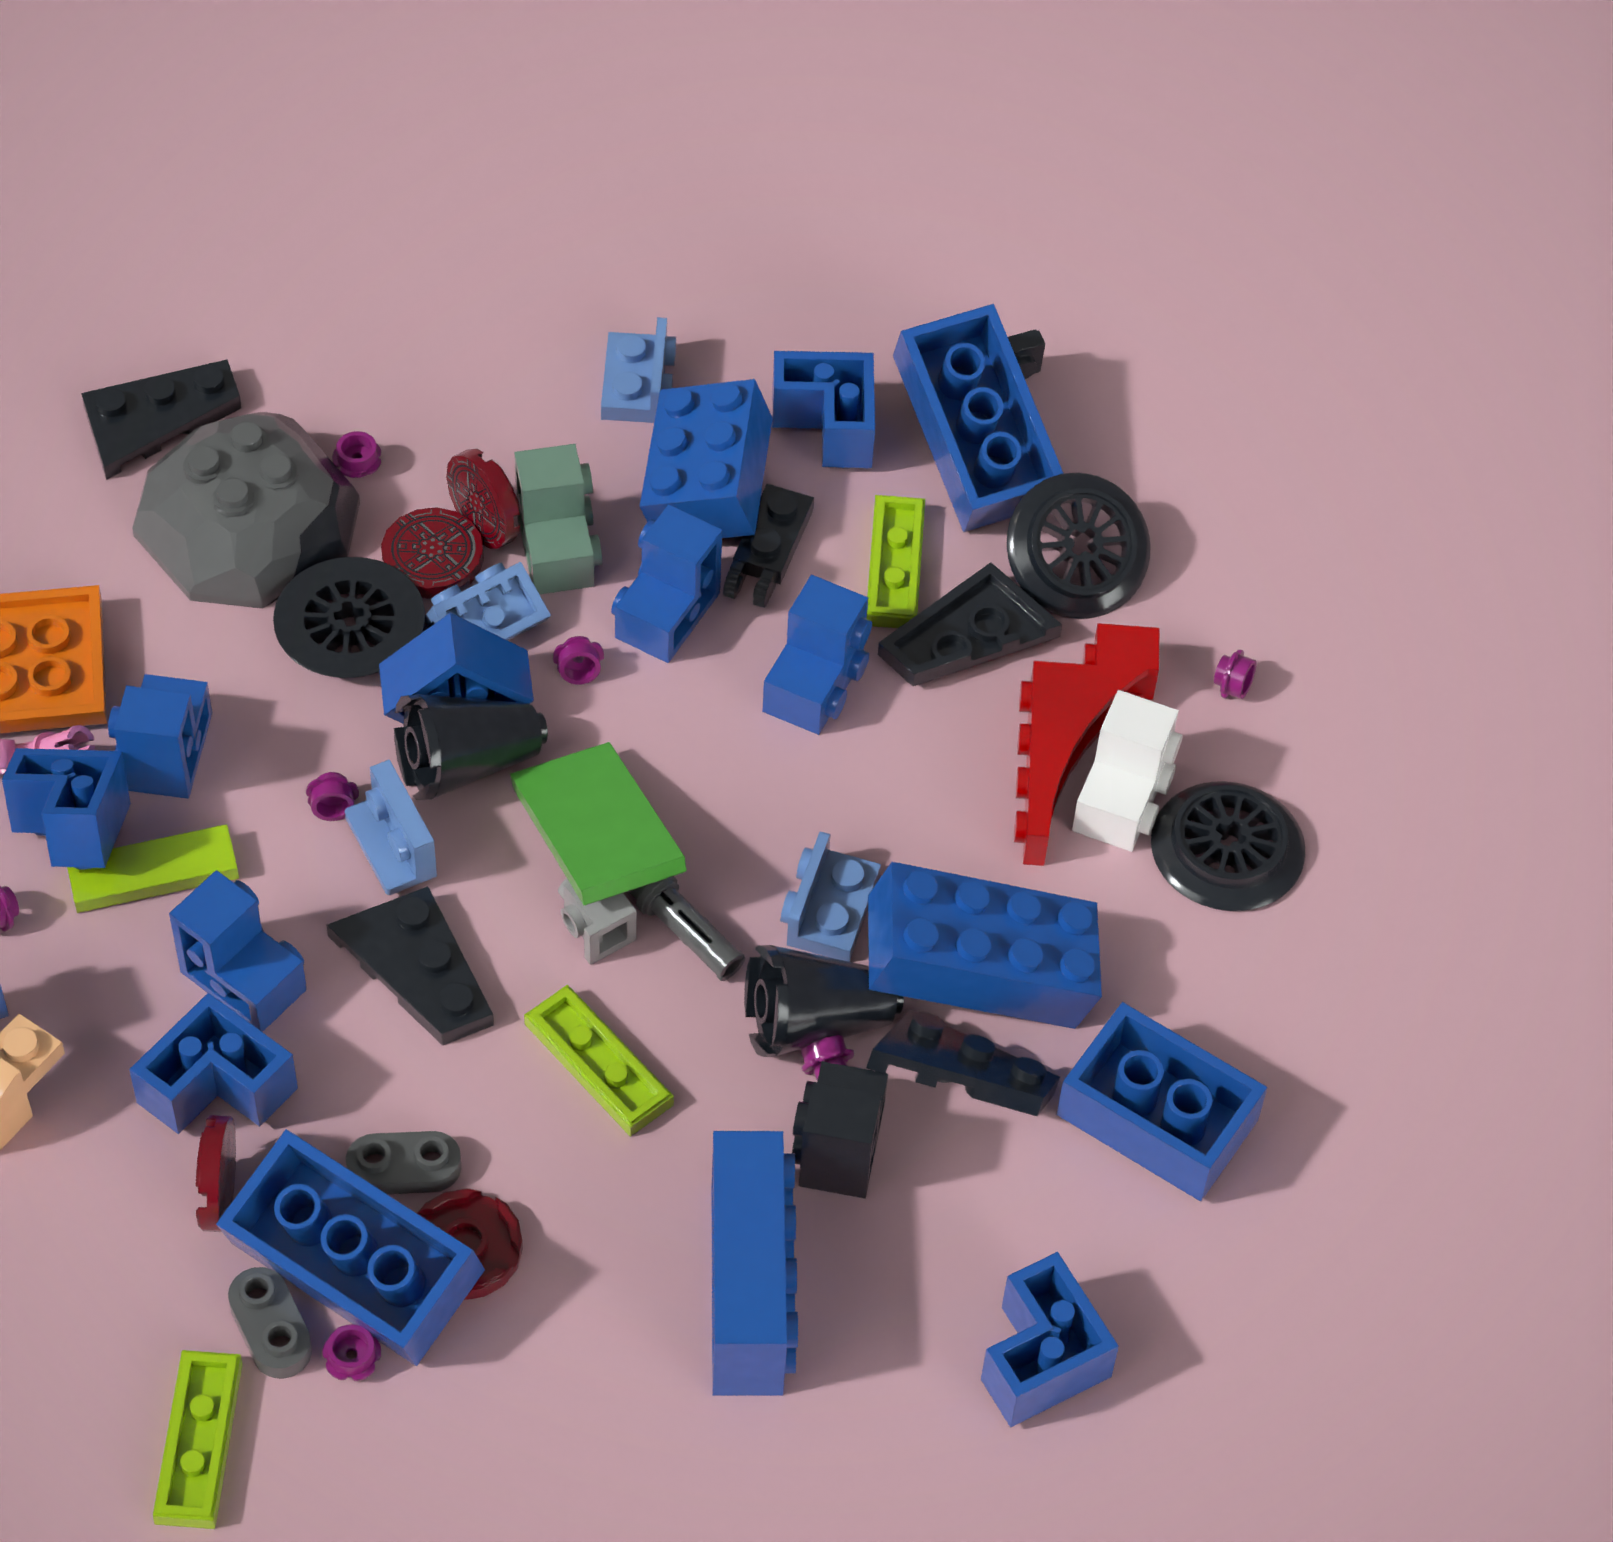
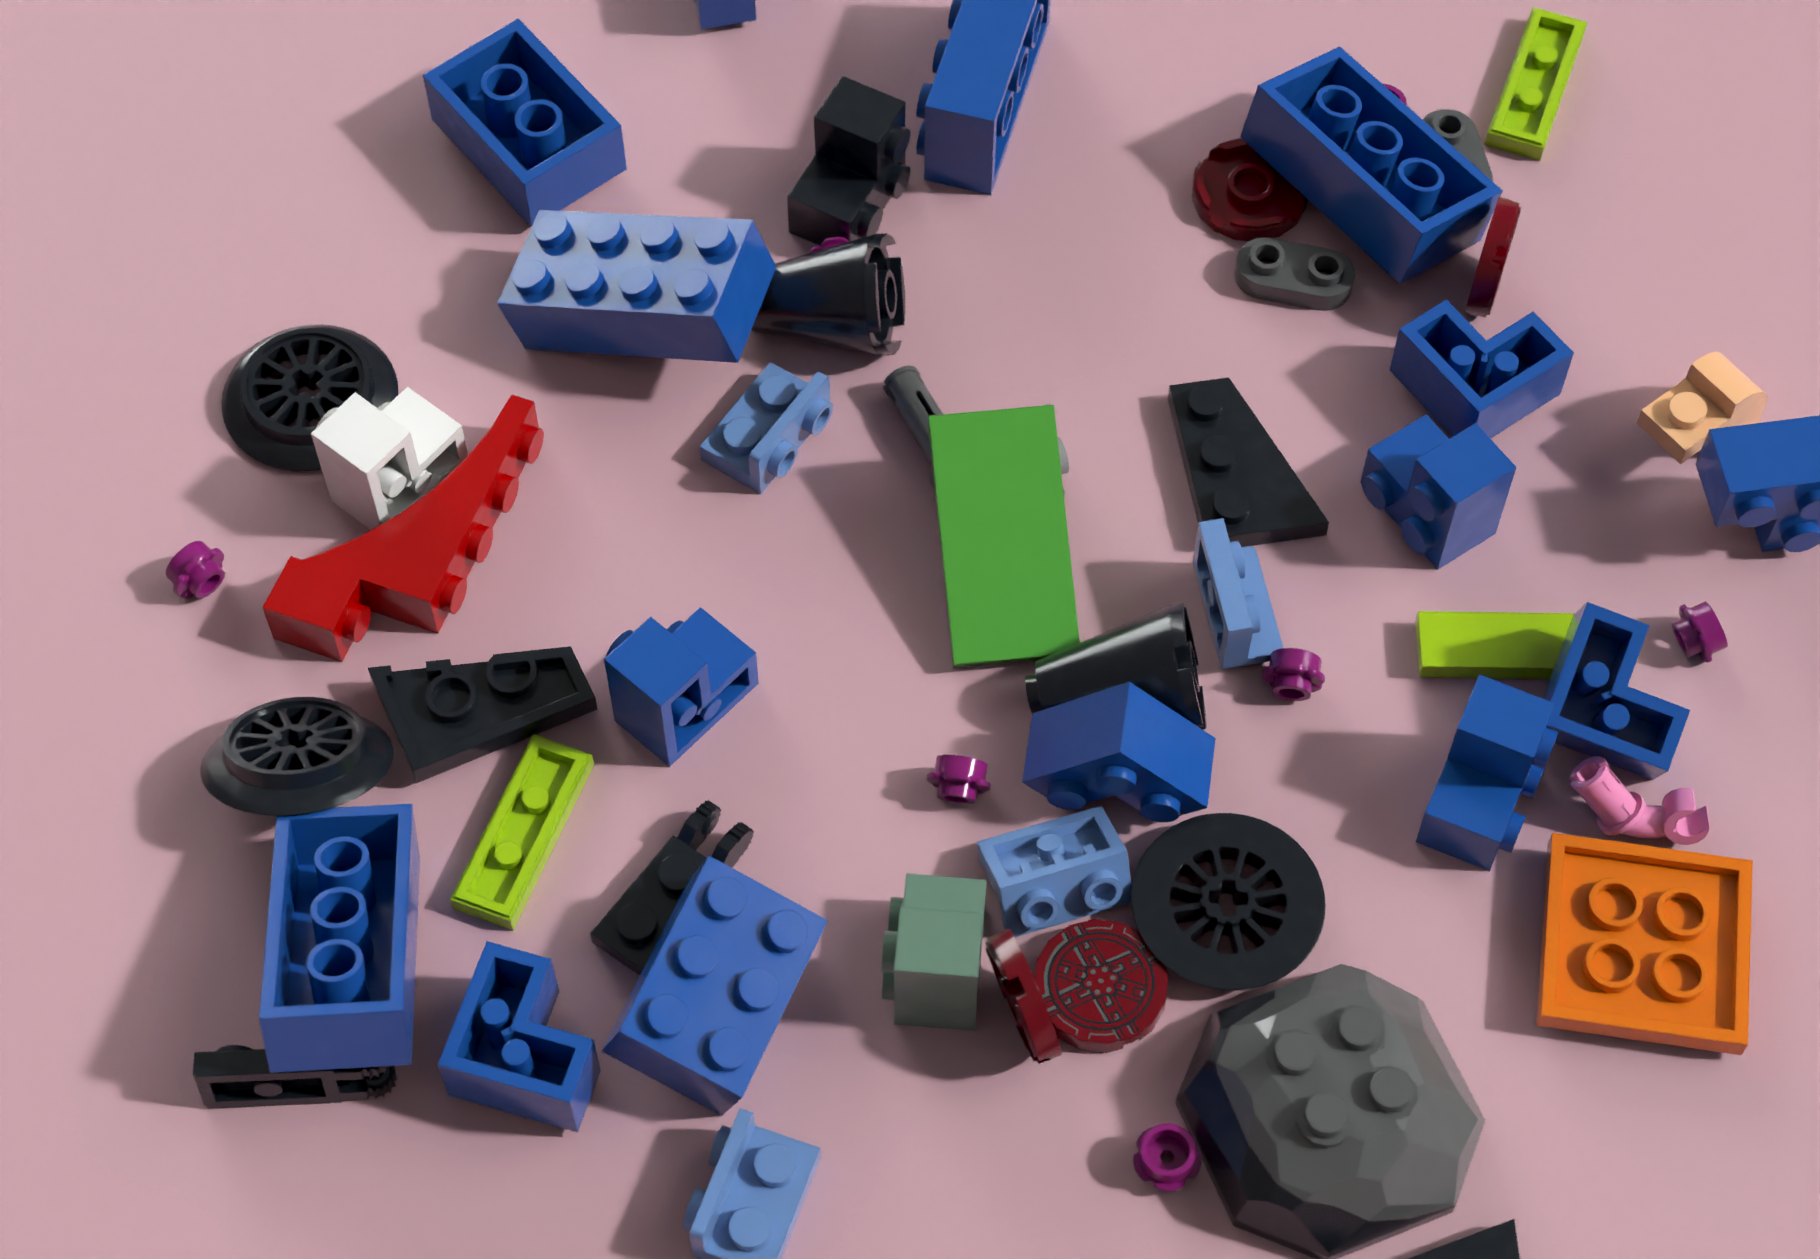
camera: 160 degrees left, 5 degrees up
(599, 1060) = (1069, 329): lime tile -> none
(673, 583) = (822, 821): blue brick -> none
(946, 1055) = (676, 187): black wing -> none

